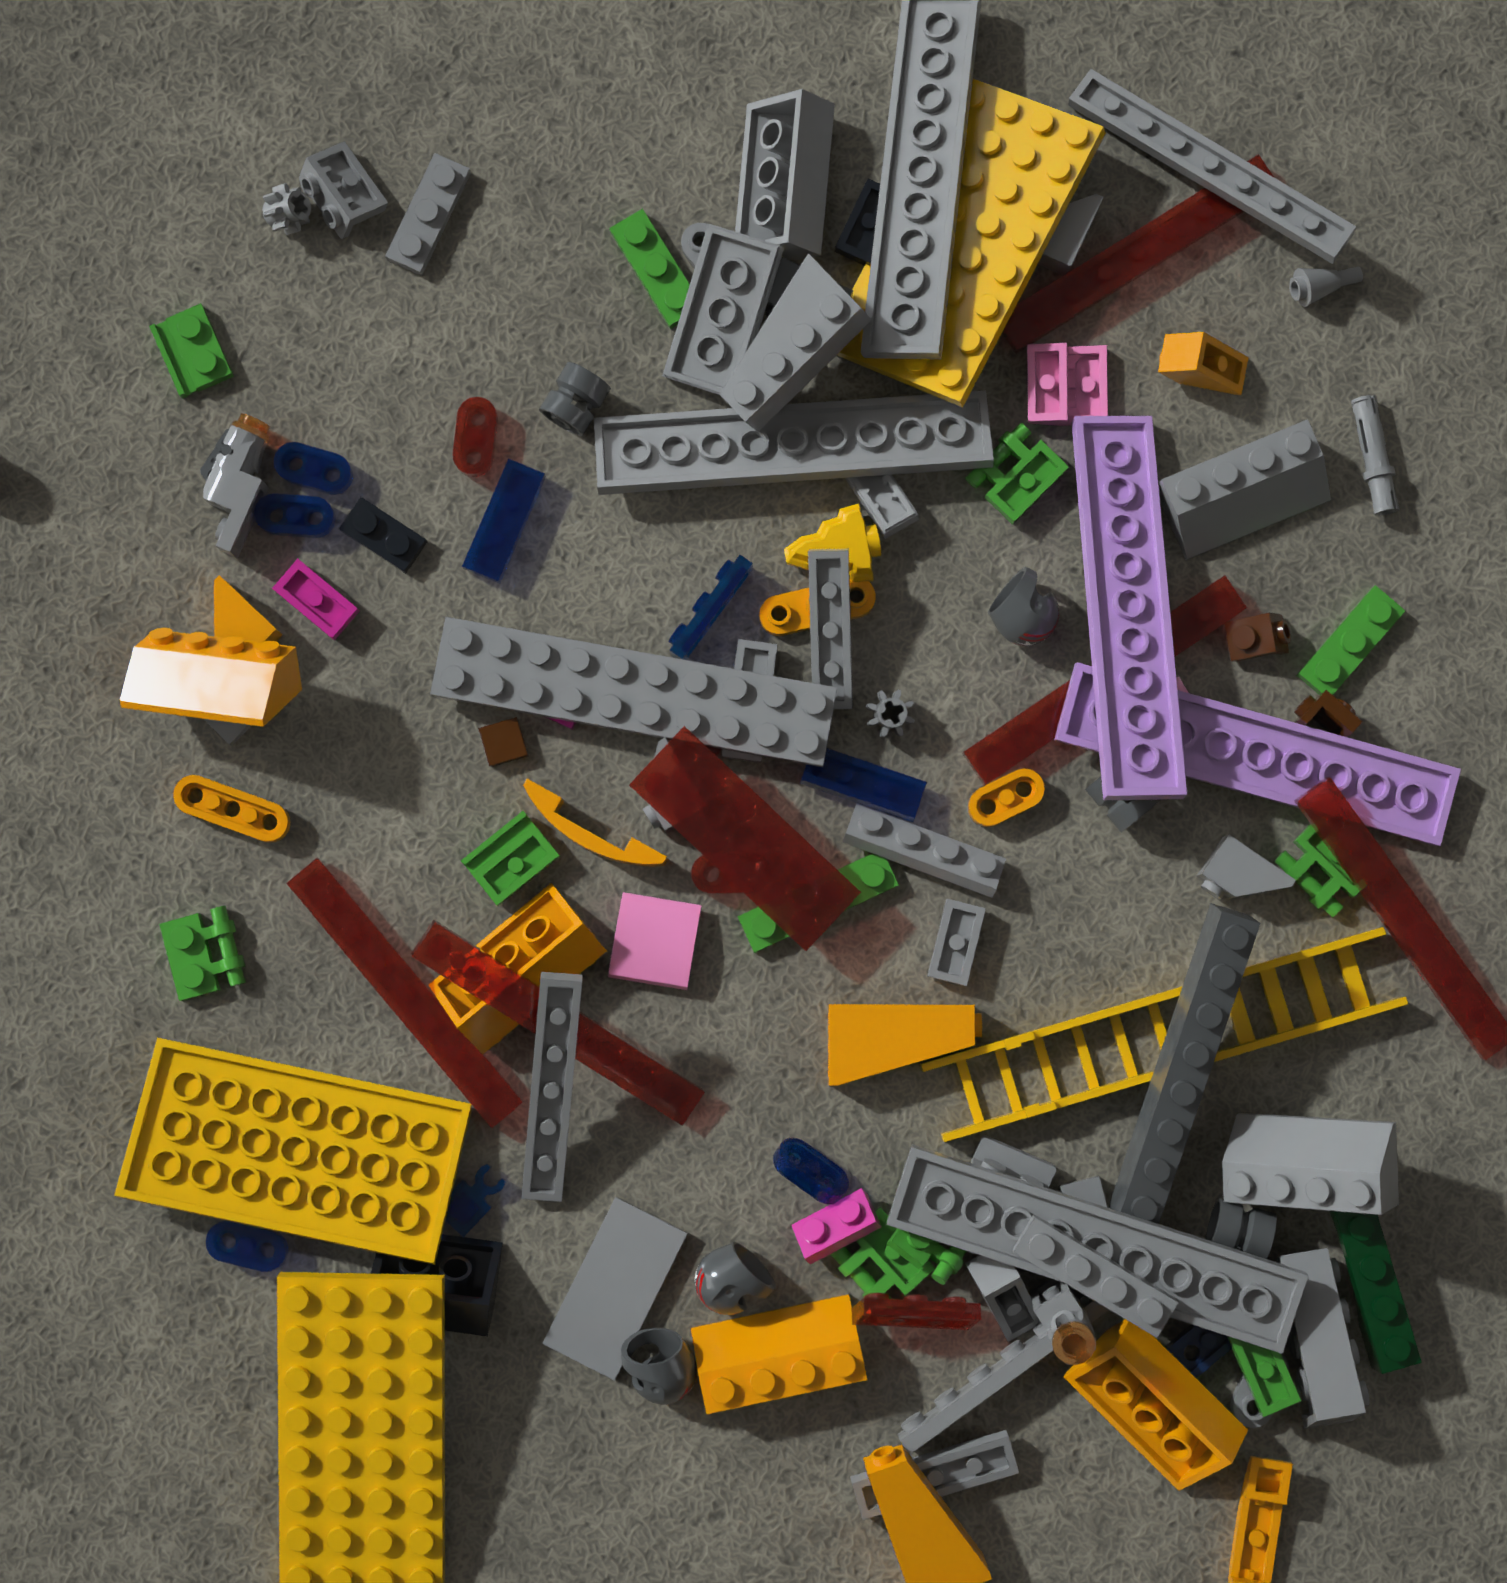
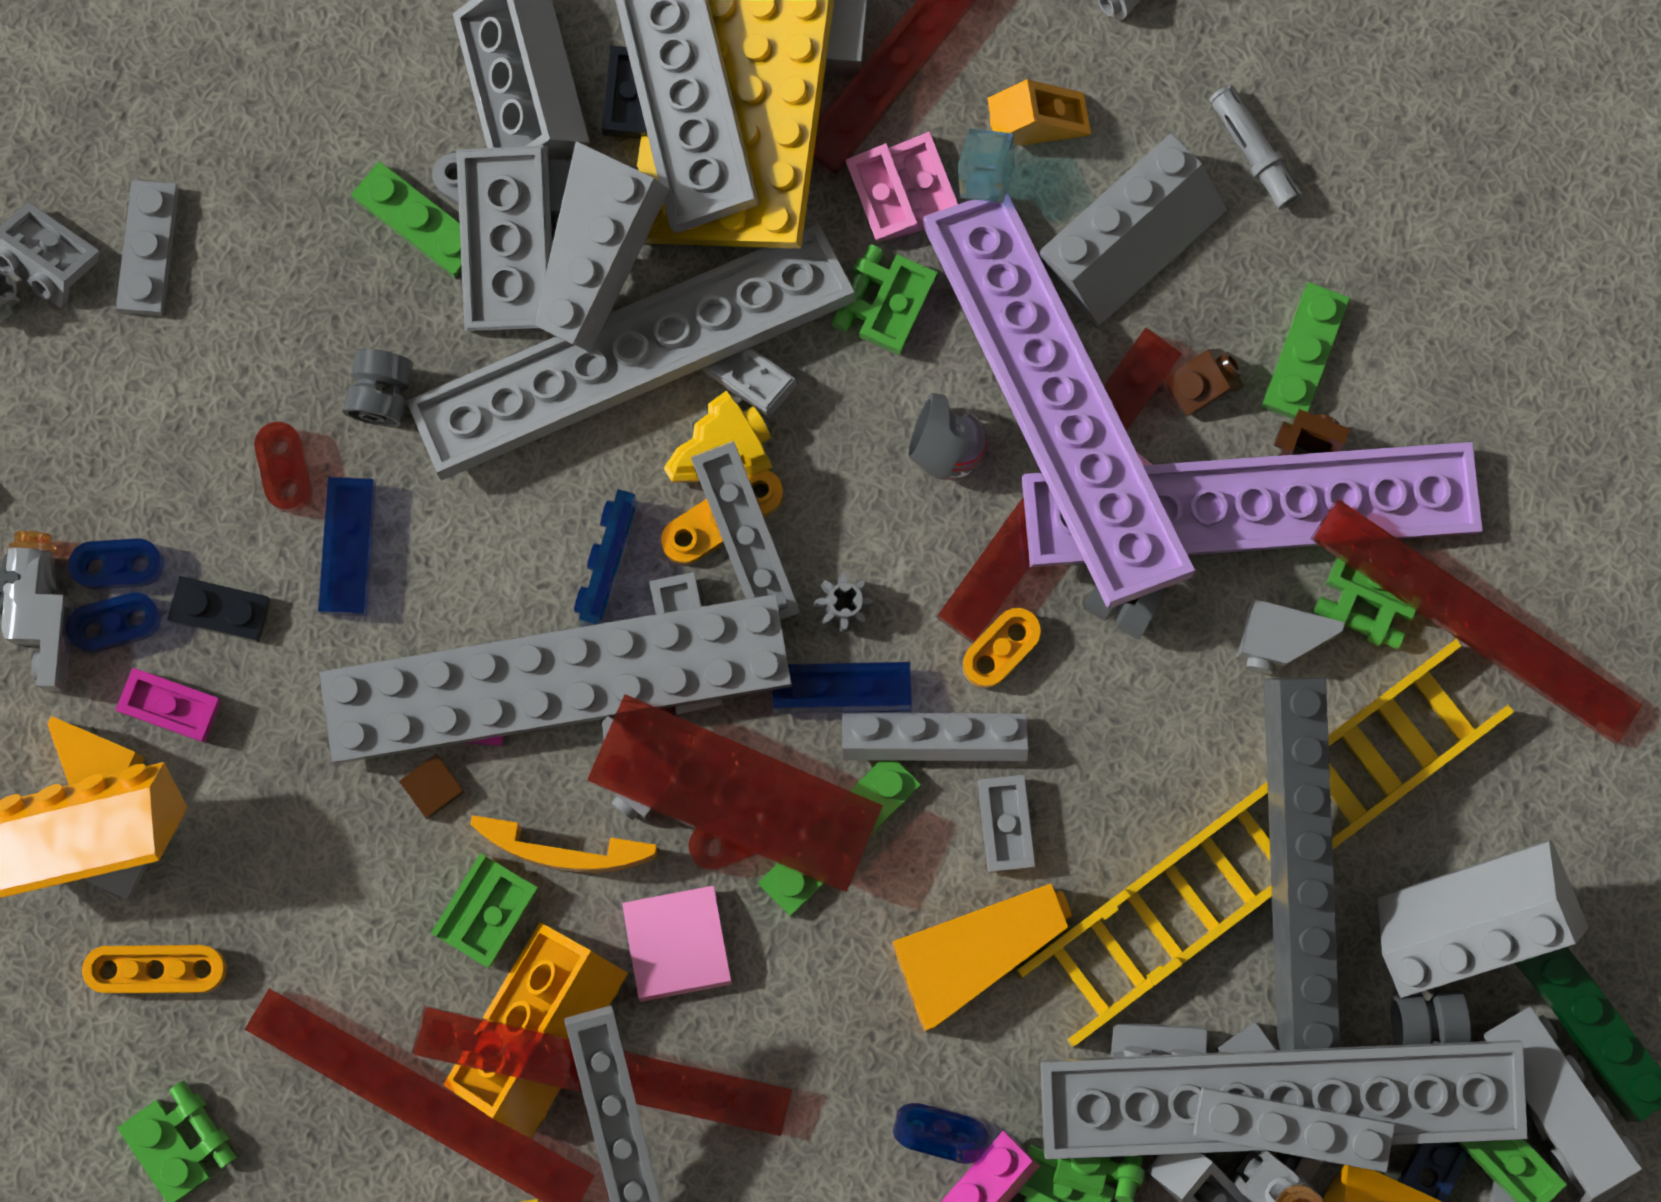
camera: 25 degrees left, 5 degrees down
(1143, 391) = (986, 165): none -> clear light blue brick

